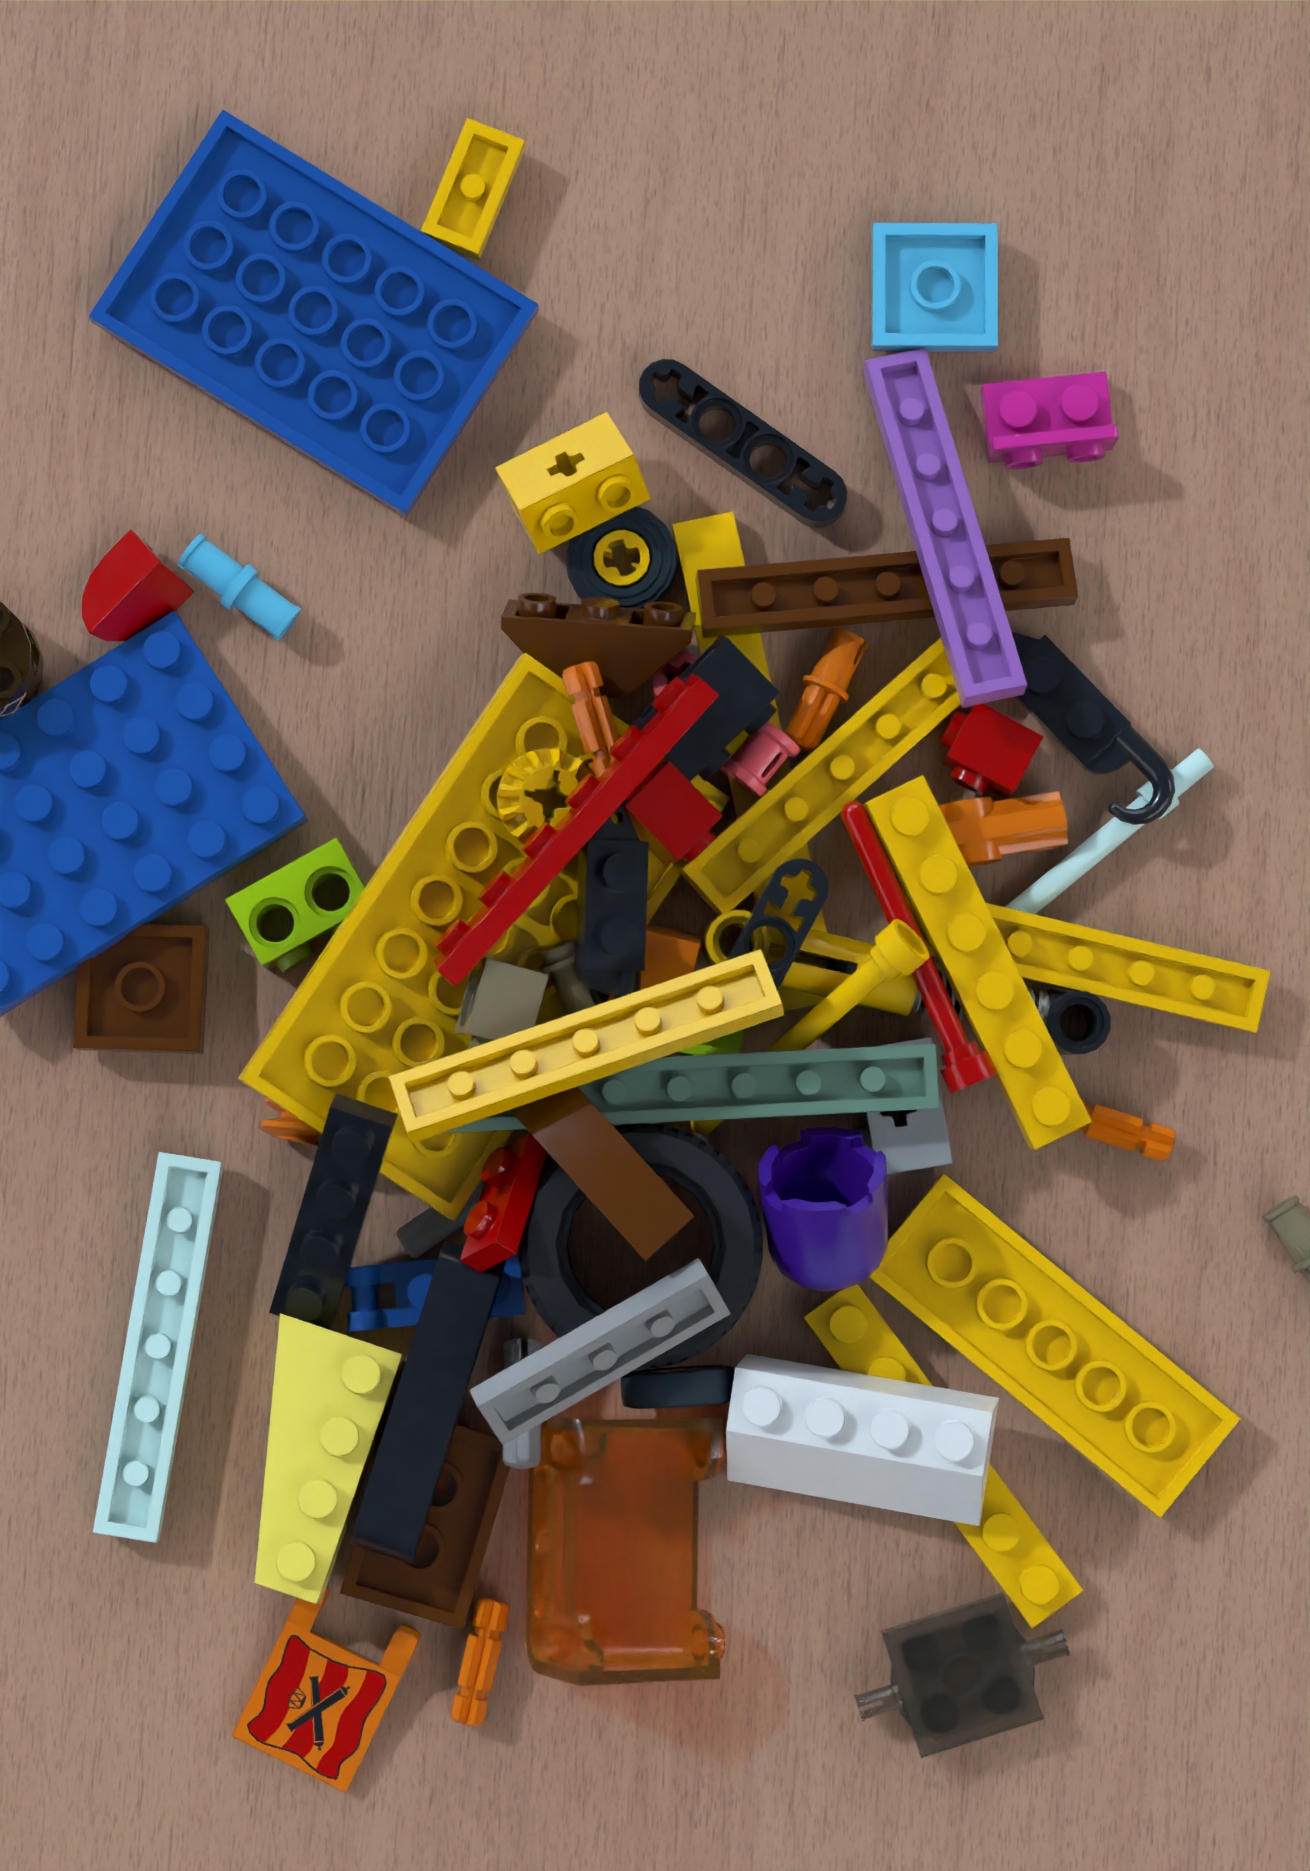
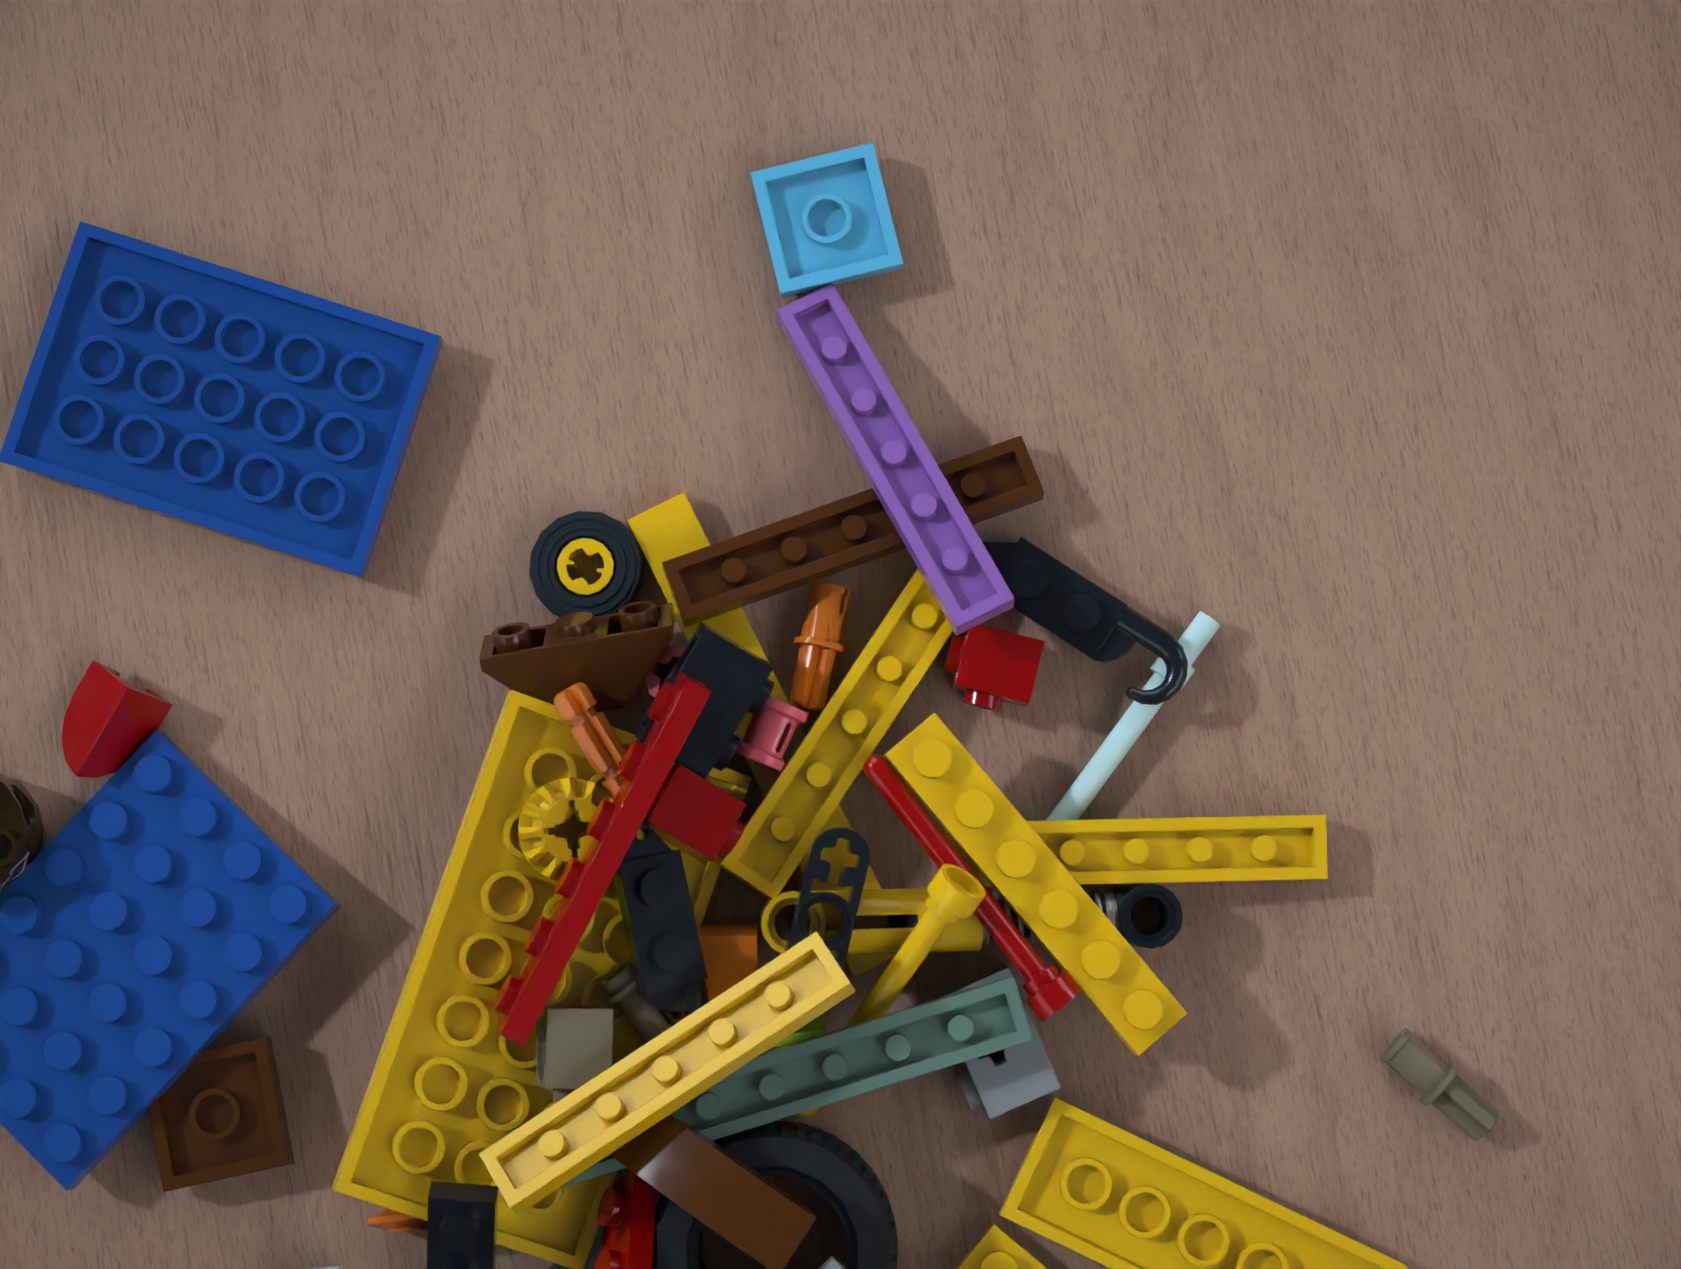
camera: 10 degrees left, 0 degrees up
(239, 587) = (214, 690): medium azure pin -> none
(295, 890) = (347, 980): lime brick -> none
(473, 188) = (348, 236): yellow plate -> none
(573, 482) = (518, 505): yellow brick -> none
(748, 435) = (679, 414): black beam -> none
(825, 1208) = (945, 1165): dark purple cylinder -> none
(1005, 827) = (1015, 744): orange piece -> none
(1048, 419) = (971, 321): dark pink bracket -> none
(1128, 1132) = (1225, 1008): orange axle -> none

